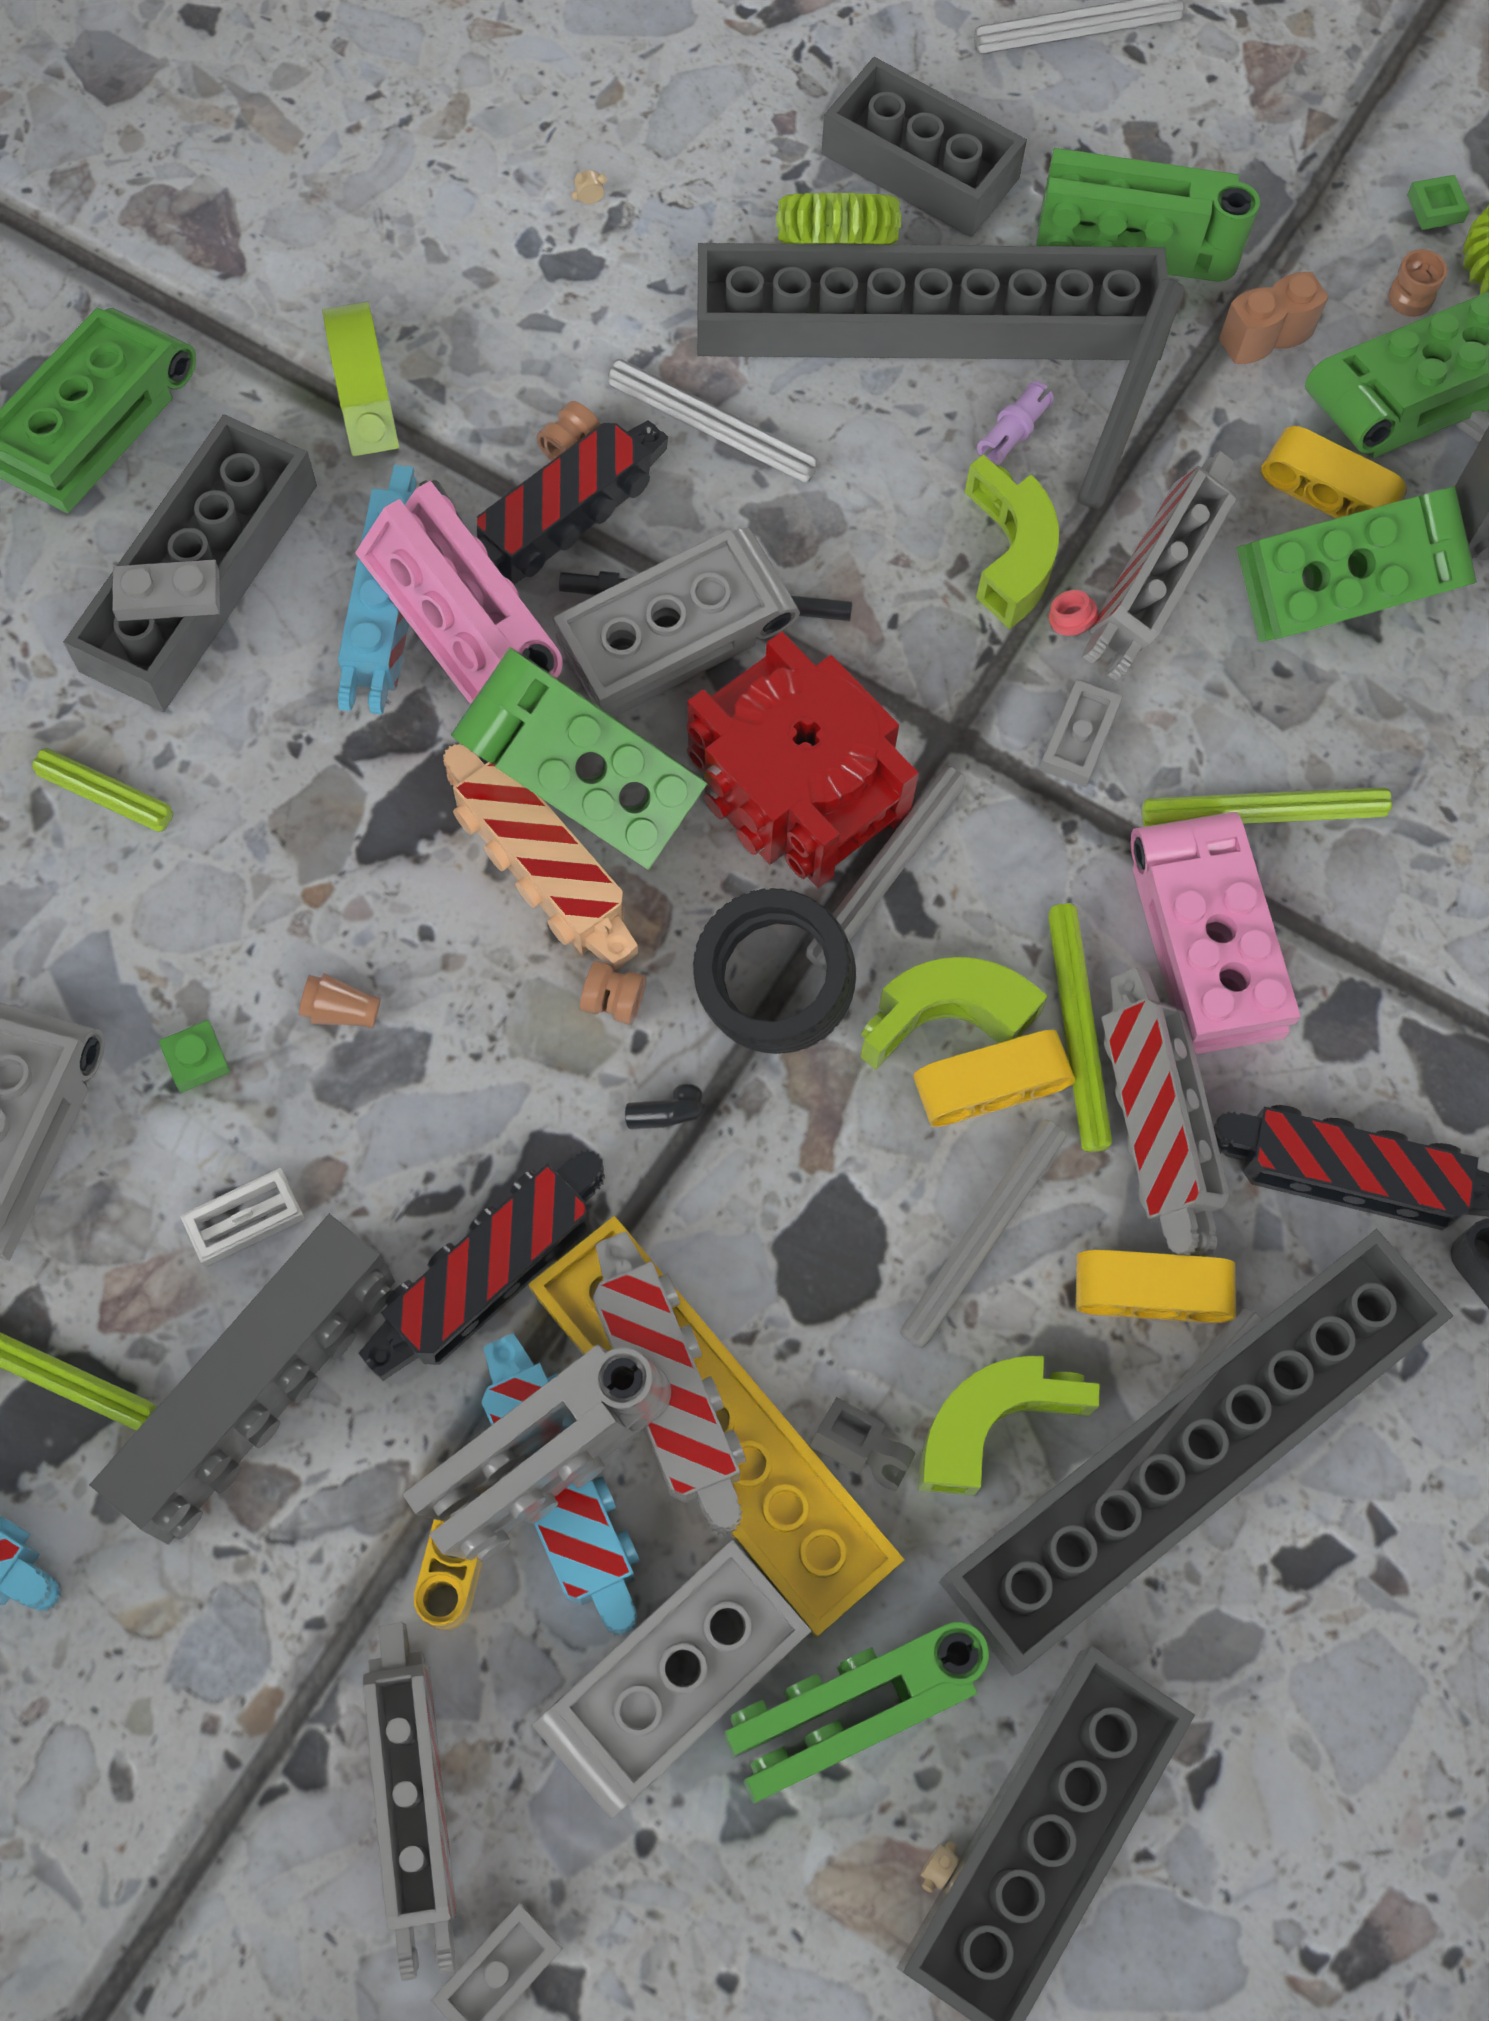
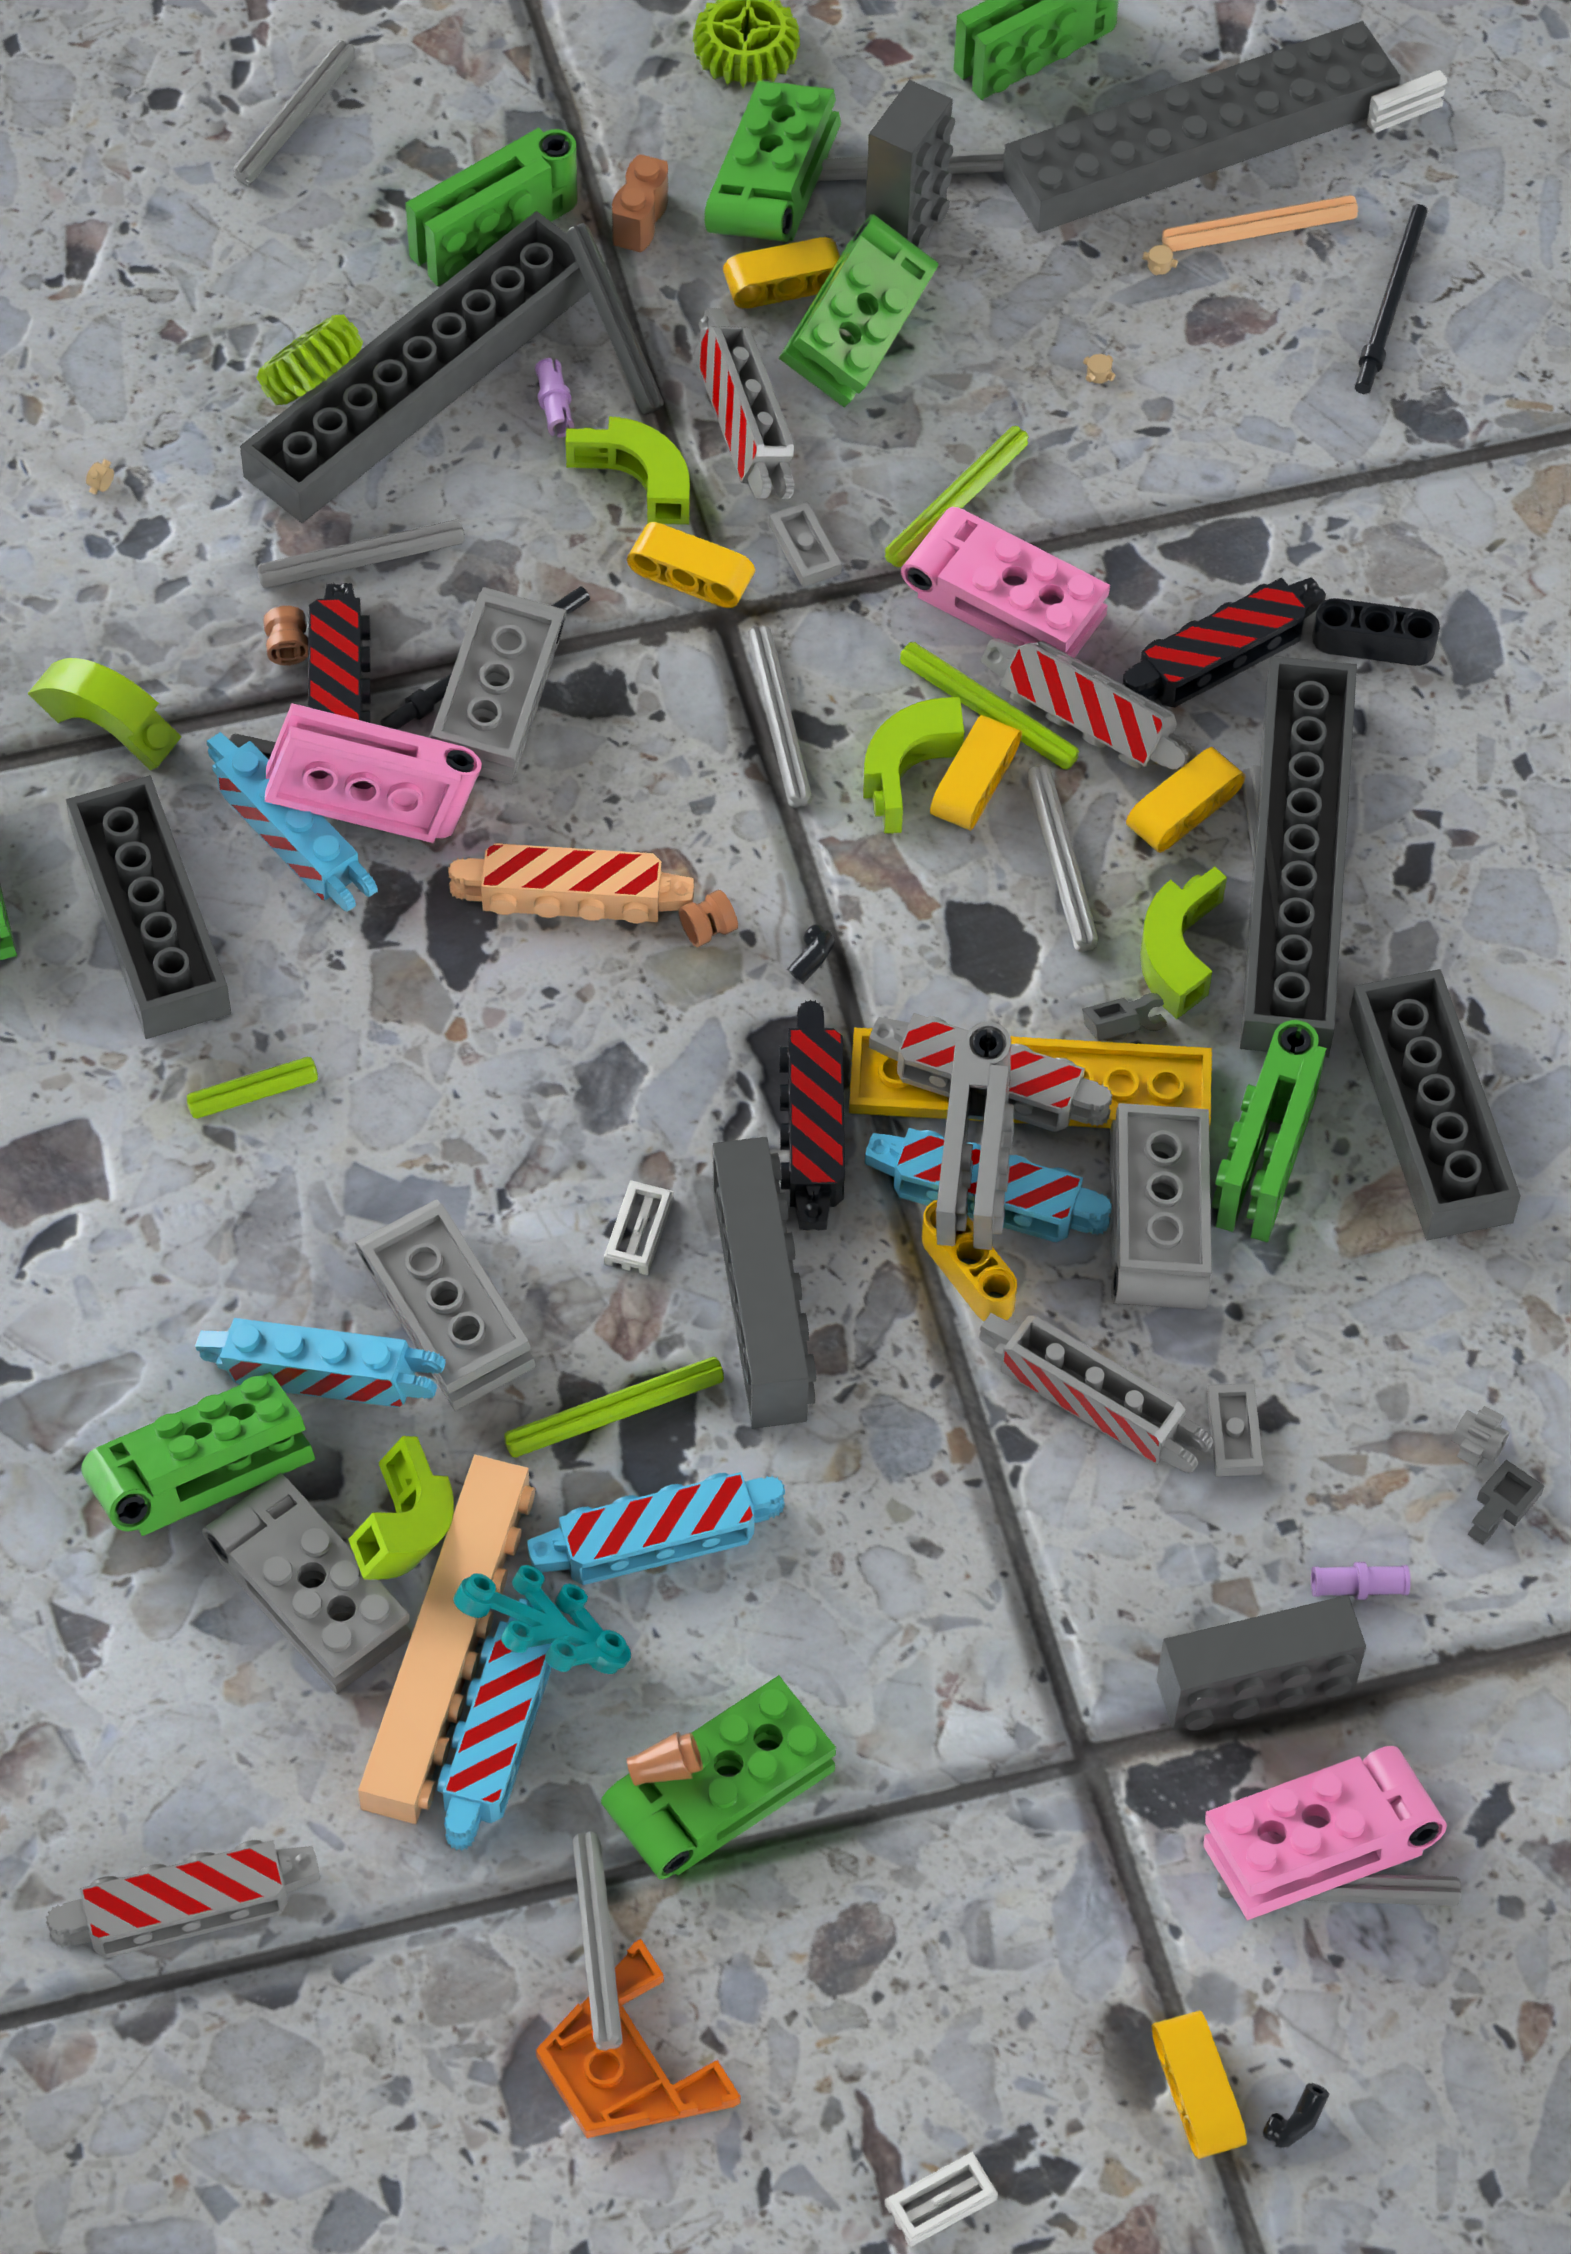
camera: 45 degrees left, 10 degrees down
(166, 590) = (171, 924): light grey plate -> none
(194, 1056) = (501, 1174): bright green plate -> none
(337, 1003) = (550, 1069): nougat cone -> none
(539, 729) = (552, 794): bright green hinge -> none
(734, 924) = (795, 768): black tyre -> none
(800, 760) = (668, 694): red piece -> none
(922, 146) = (298, 272): dark grey brick -> none
(939, 1866) = (1394, 1174): tan piece -> none
(962, 665) = (691, 565): none -> yellow beam
(1072, 613) = (721, 480): coral plate -> none
(1417, 282) = (701, 110): nougat wheel -> none
(1438, 202) = (656, 48): bright green plate -> none

